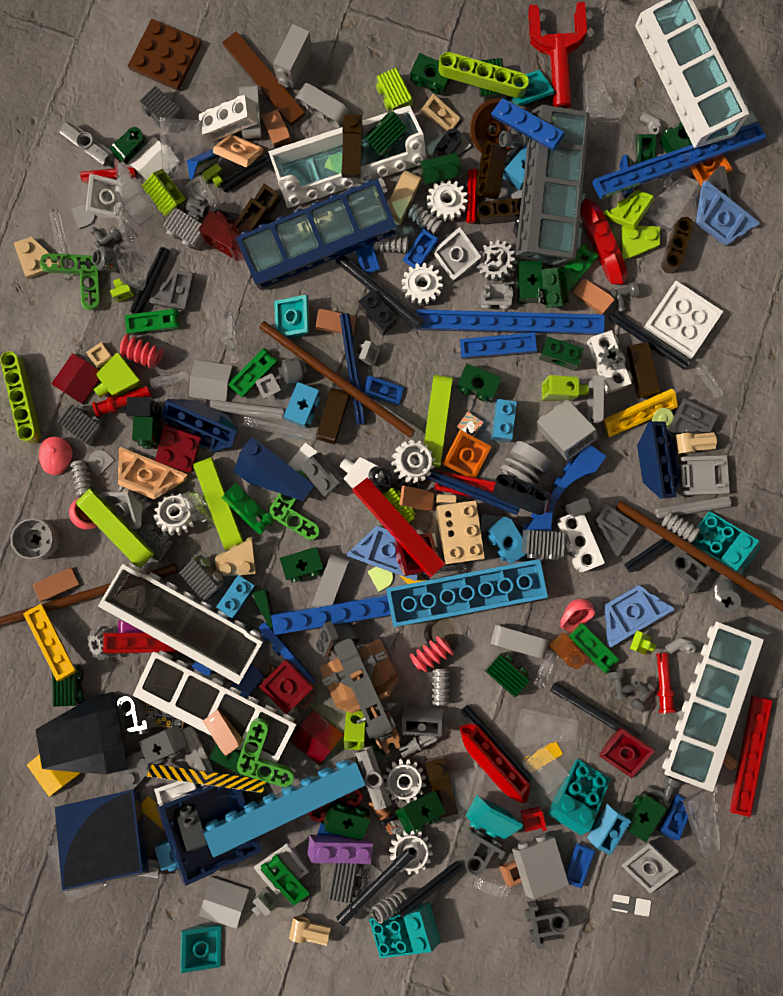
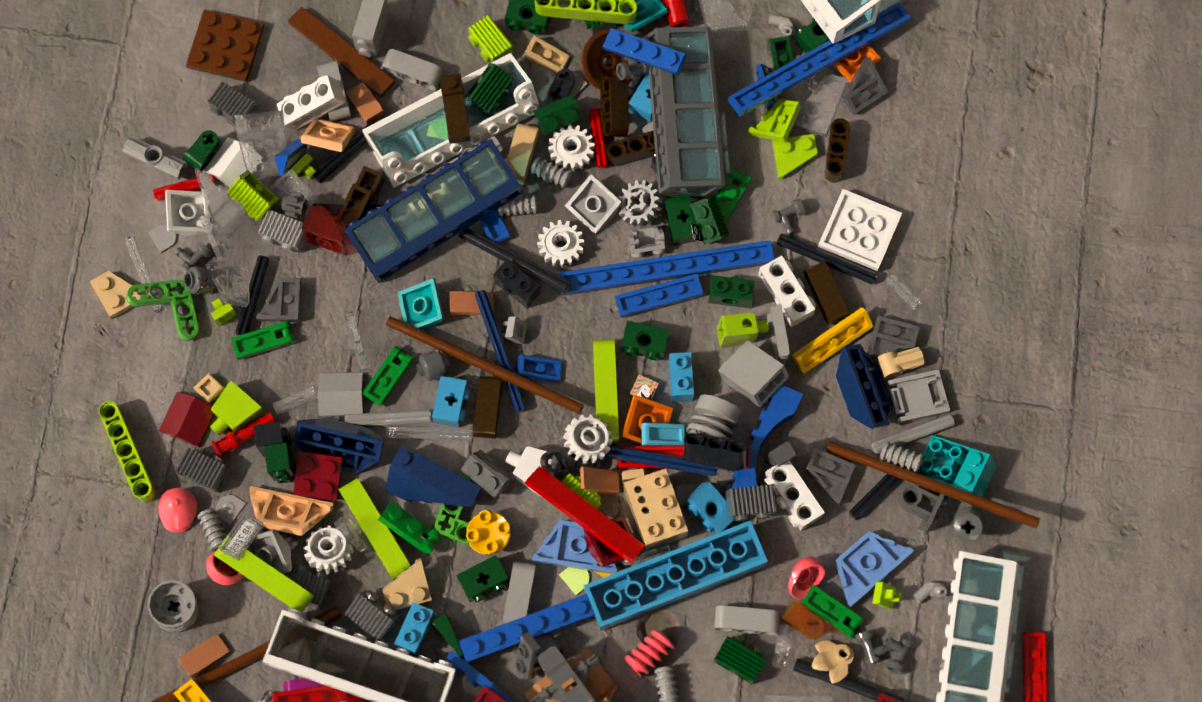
camera: 10 degrees left, 10 degrees down
(100, 491) = (241, 536): none -> clear tile
(140, 353) = (256, 376): coral piece -> none
(267, 386) = (408, 386): light grey tile -> none
(302, 455) = (460, 459): white sticker -> none
(313, 526) = (488, 532): none -> yellow dish
(421, 249) = (552, 205): blue slope -> none
(478, 468) = (663, 434): none -> medium azure tile
(583, 689) = (831, 661): none -> tan plate
(593, 296) = (755, 223): nougat slope -> none
(603, 242) = (754, 161): red brick -> none
(610, 352) = (785, 278): dark grey gear -> none
(663, 415) = (859, 337): yellowish green piece -> none
(666, 693) = (923, 645): red pin -> none
(721, 215) = (878, 110): medium blue wing -> none

